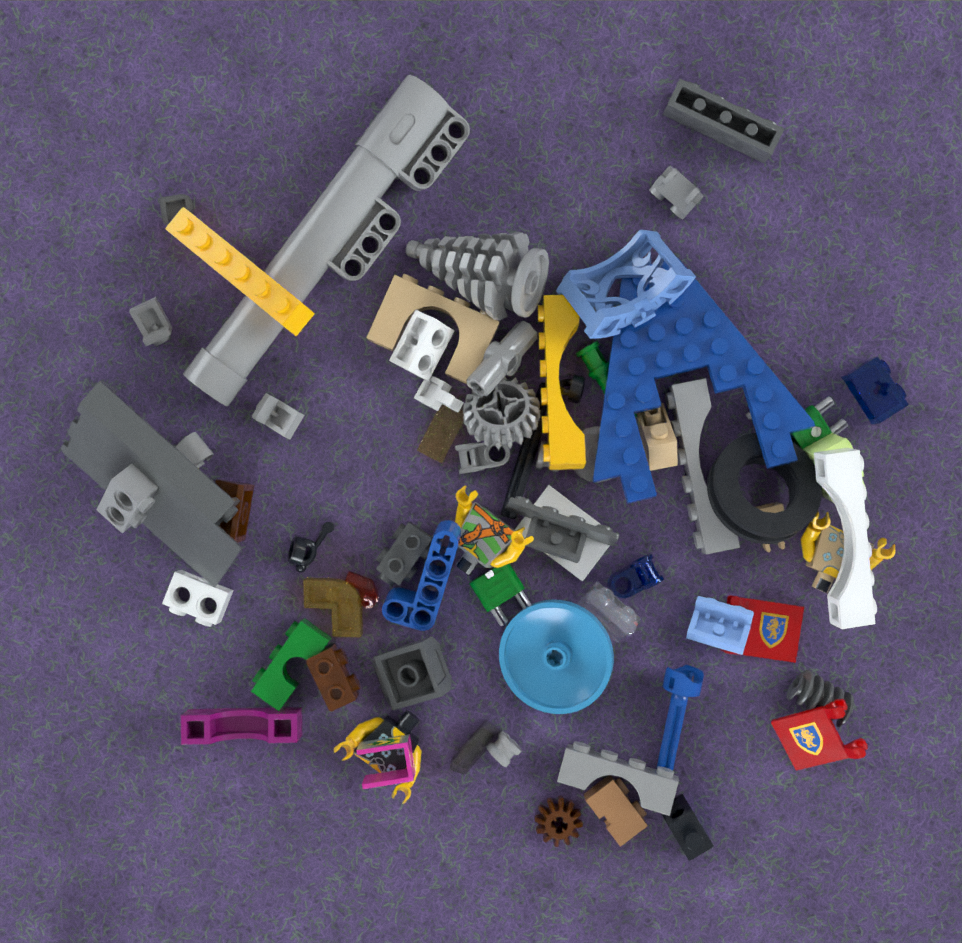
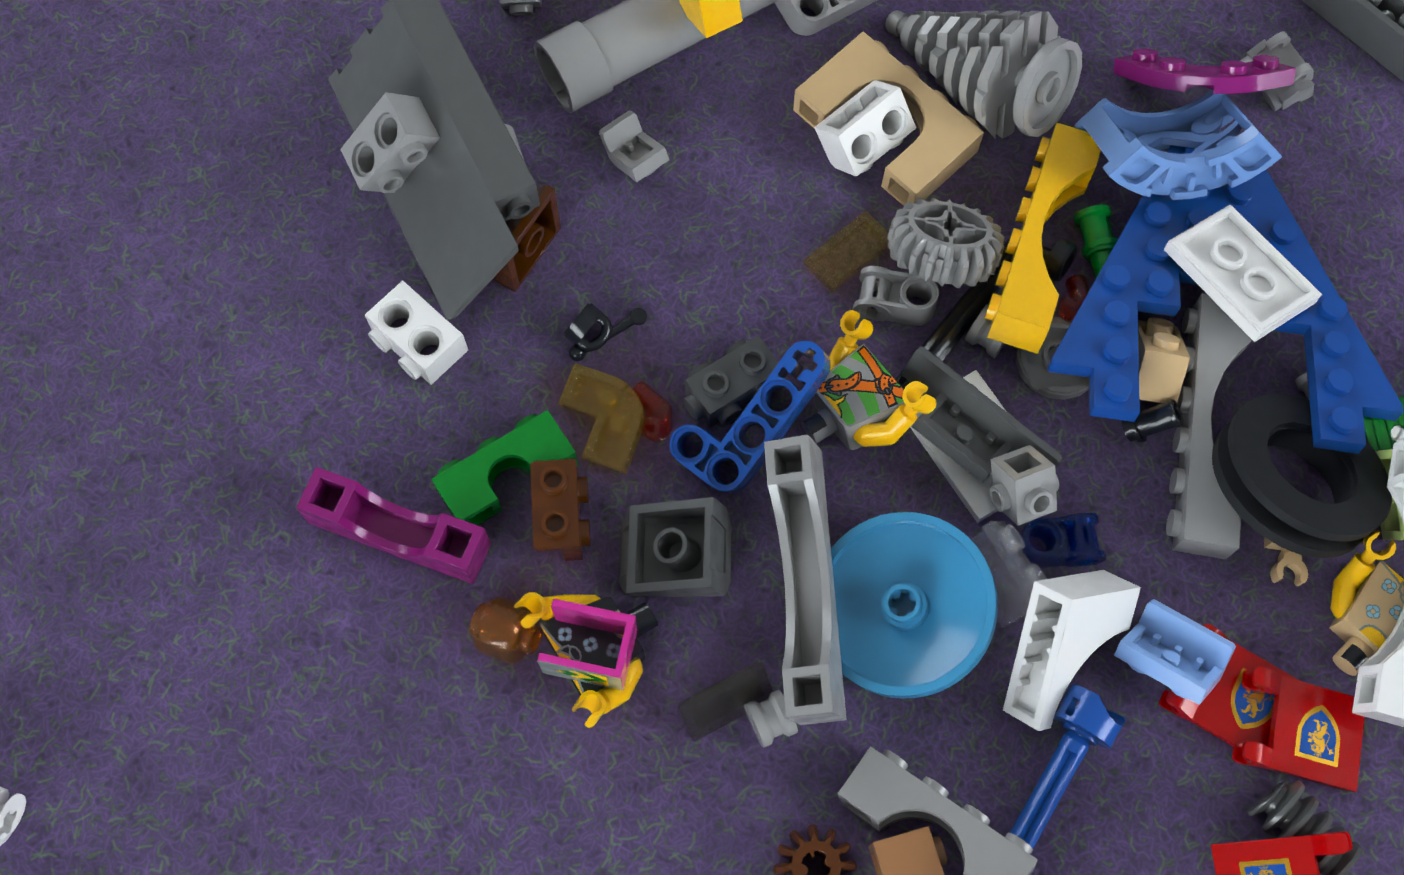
camera: 20 degrees right, 20 degrees down
(330, 763) = (499, 632): none -> clear orange head
(435, 393) = (861, 195): white plate -> none
(497, 587) = (852, 481): green piece -> none
(502, 359) = (970, 177): light grey piece -> none
(514, 709) = (812, 644): none -> light grey arch
(595, 406) = (1077, 291): none -> clear red arm
(602, 560) = (1023, 485): none -> light grey brick
(644, 226) = (1229, 78): none -> magenta plate
(652, 640) = (1060, 631): none -> white arch
(668, 478) = (1153, 421): none -> black pin
(692, 367) = (1242, 272): none -> white tile
(808, 637) = (1310, 732): none -> red flag

